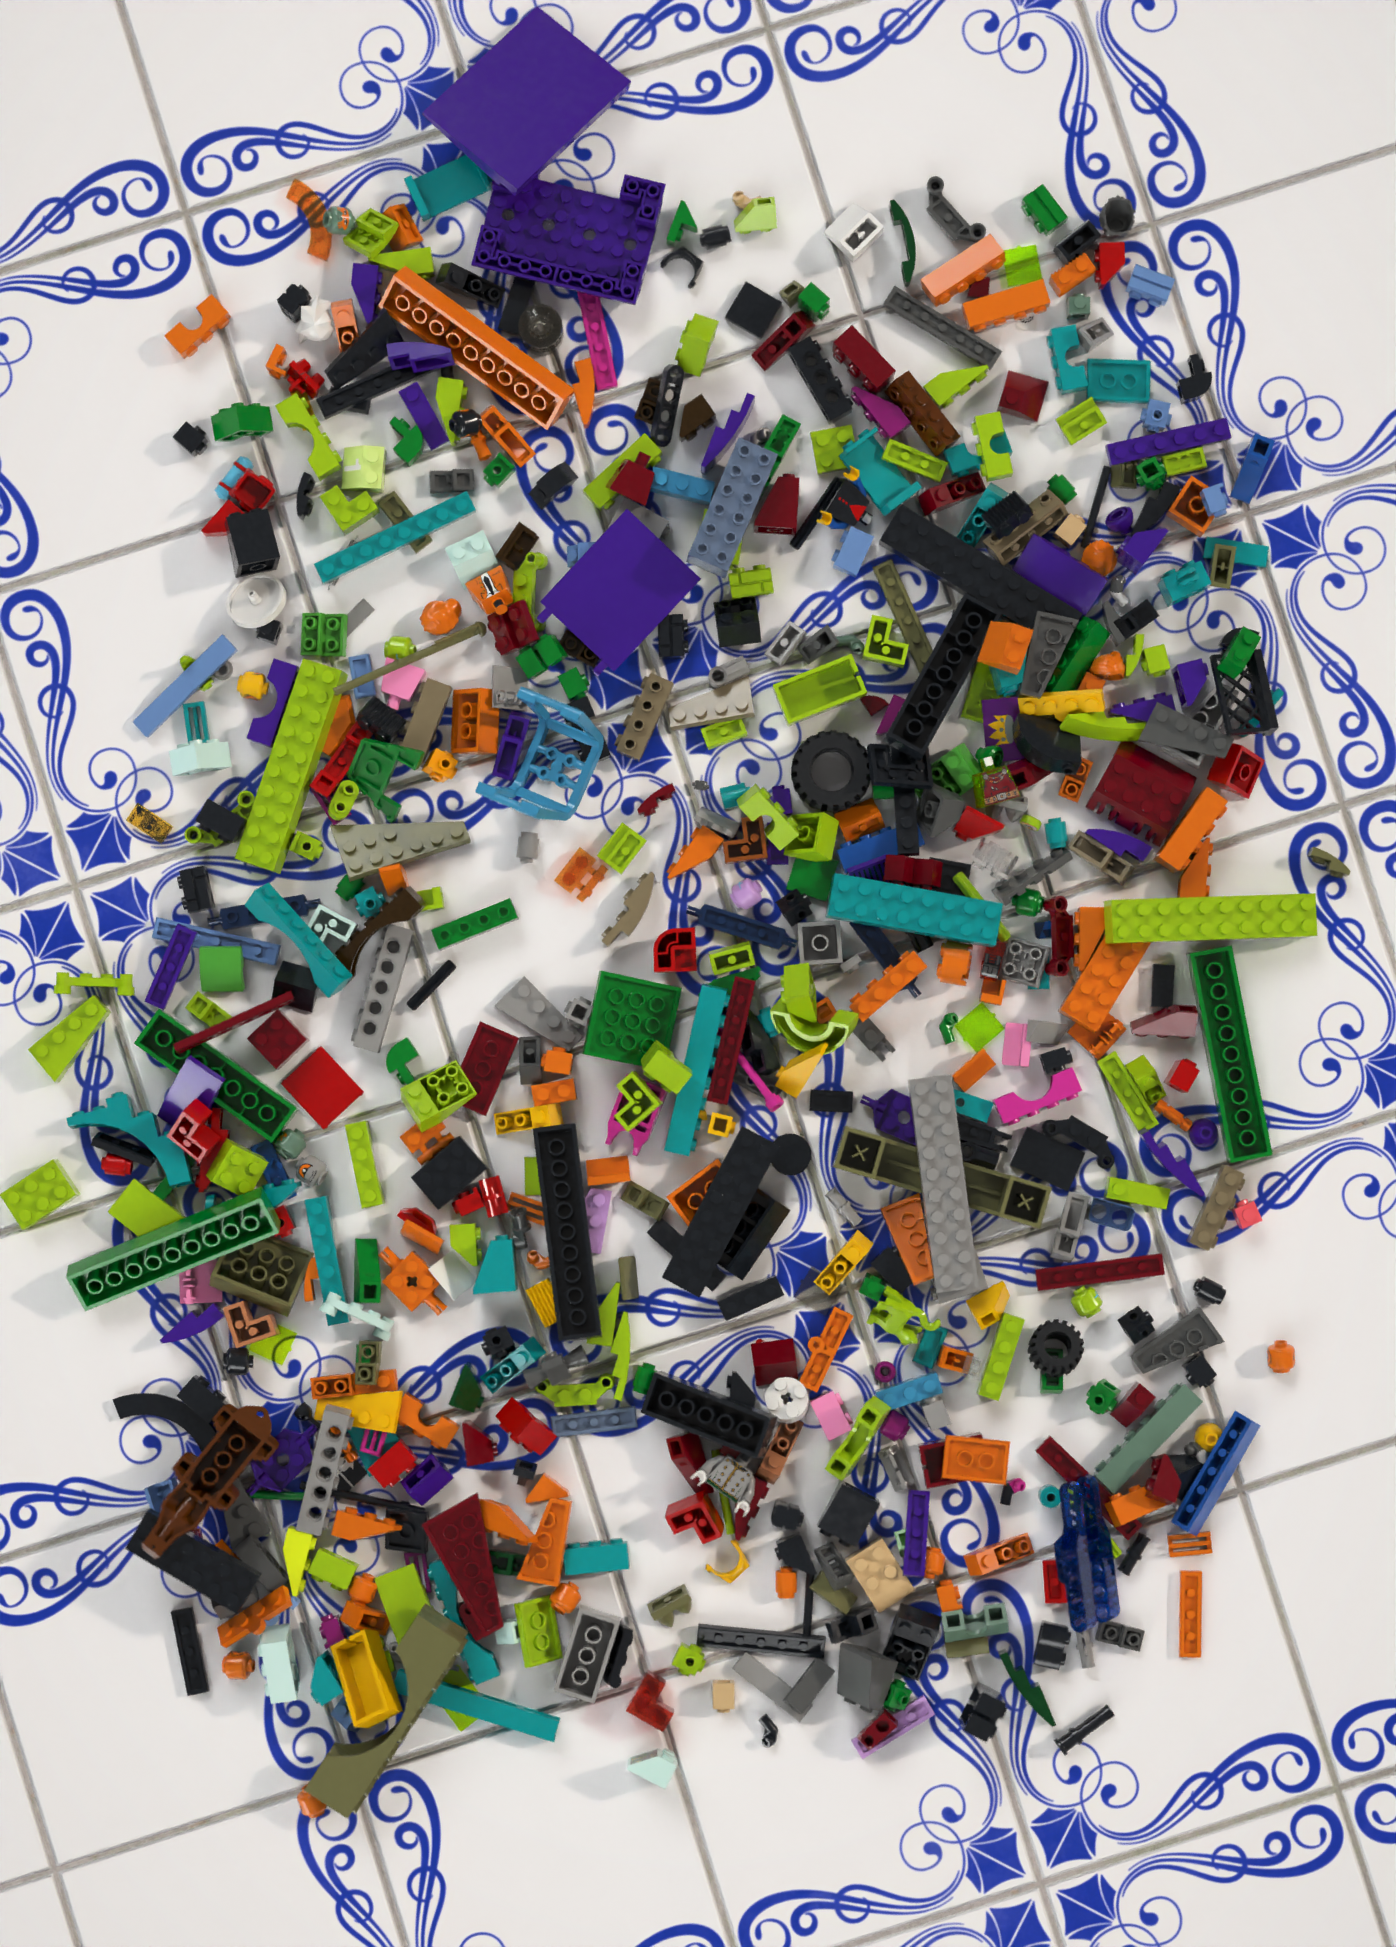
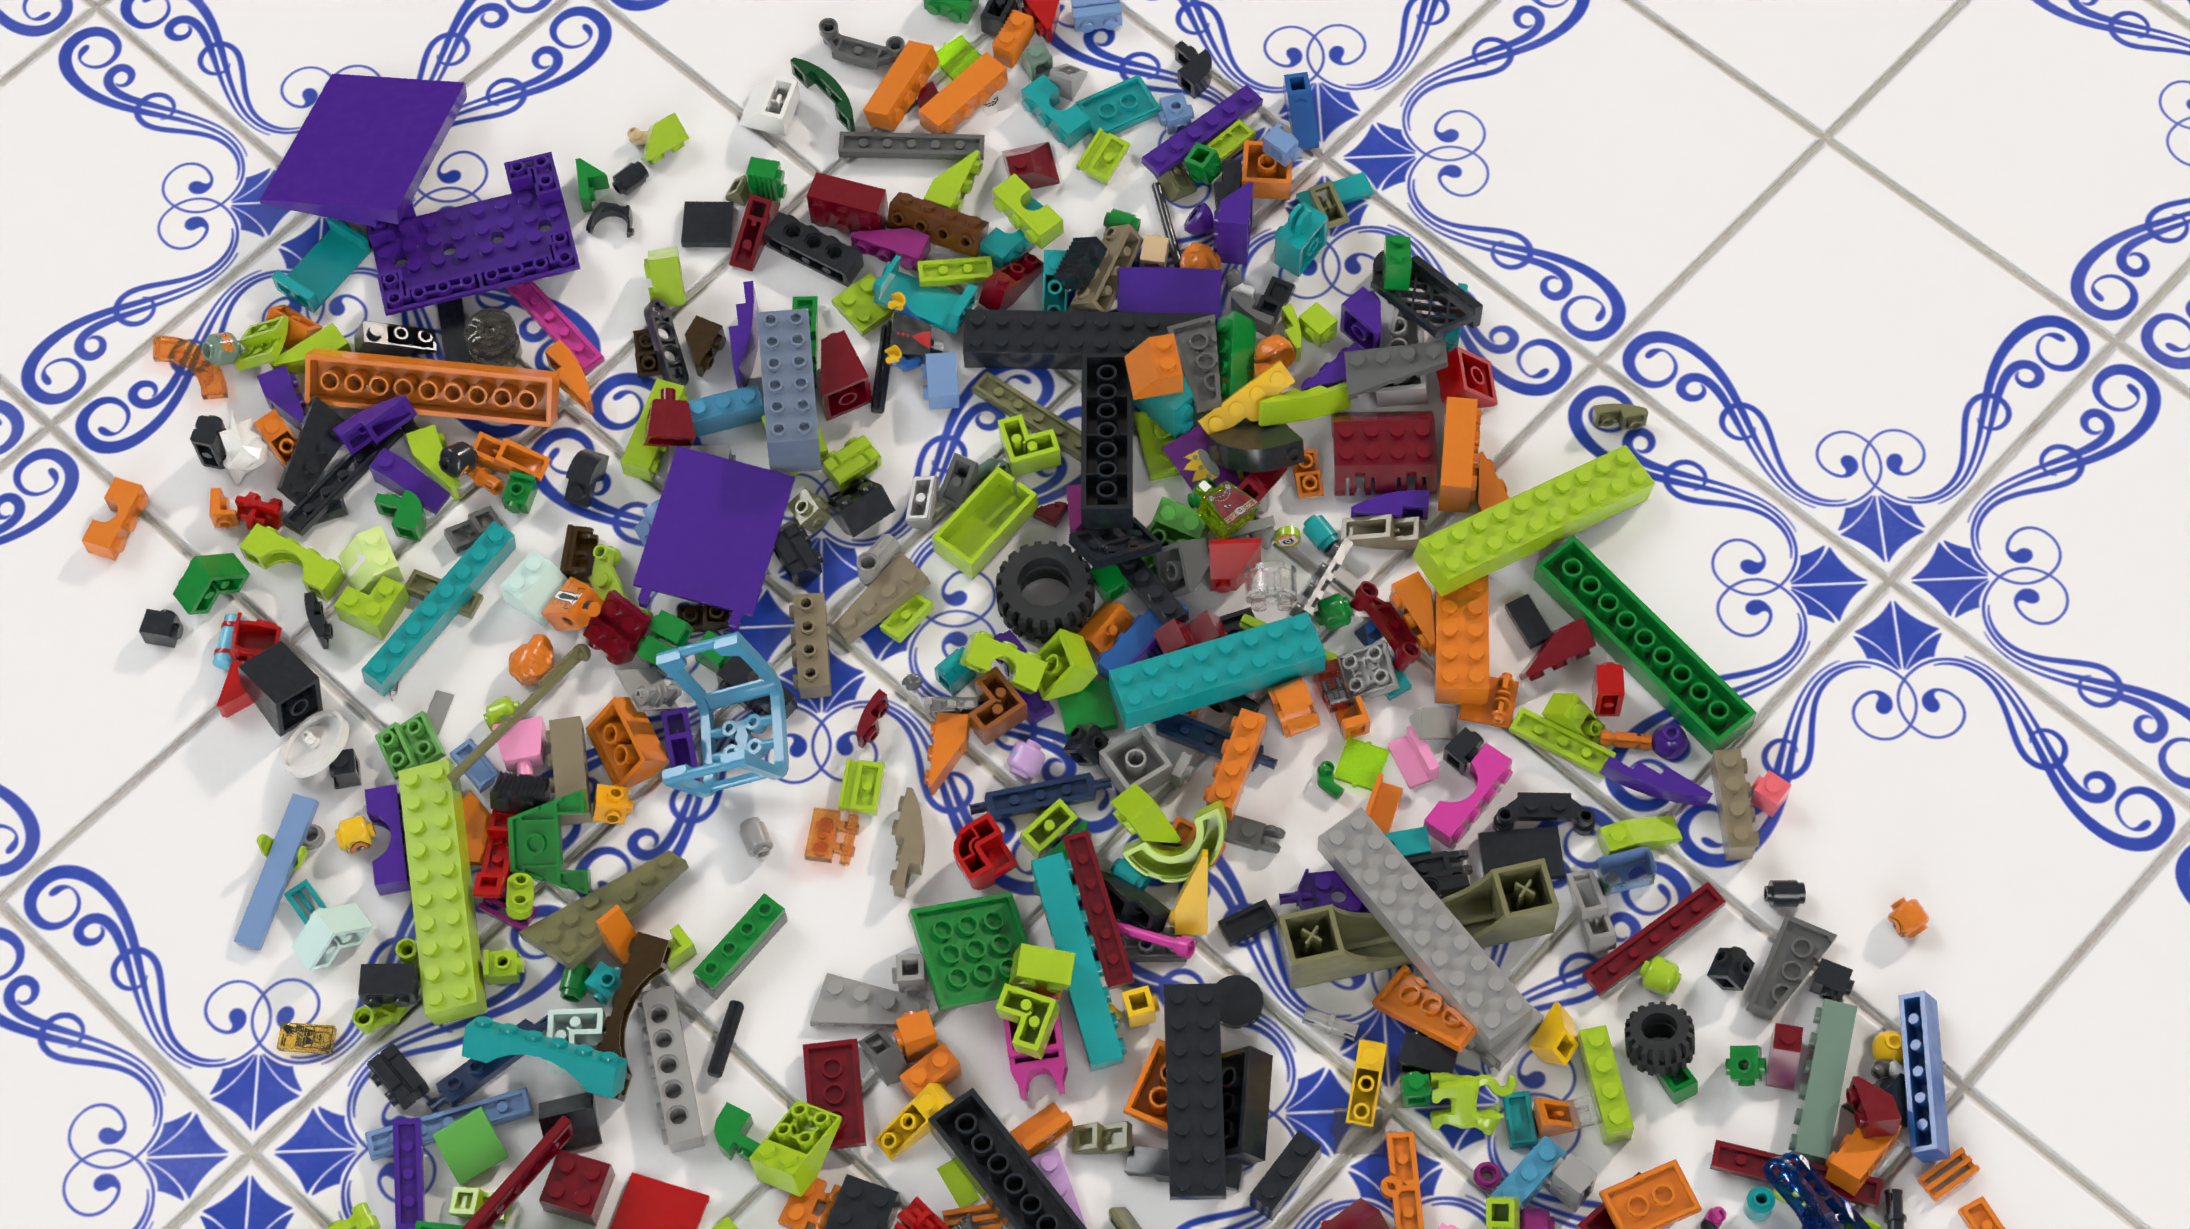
camera: 30 degrees left, 25 degrees down
(699, 608) = (809, 511): none -> olive brick

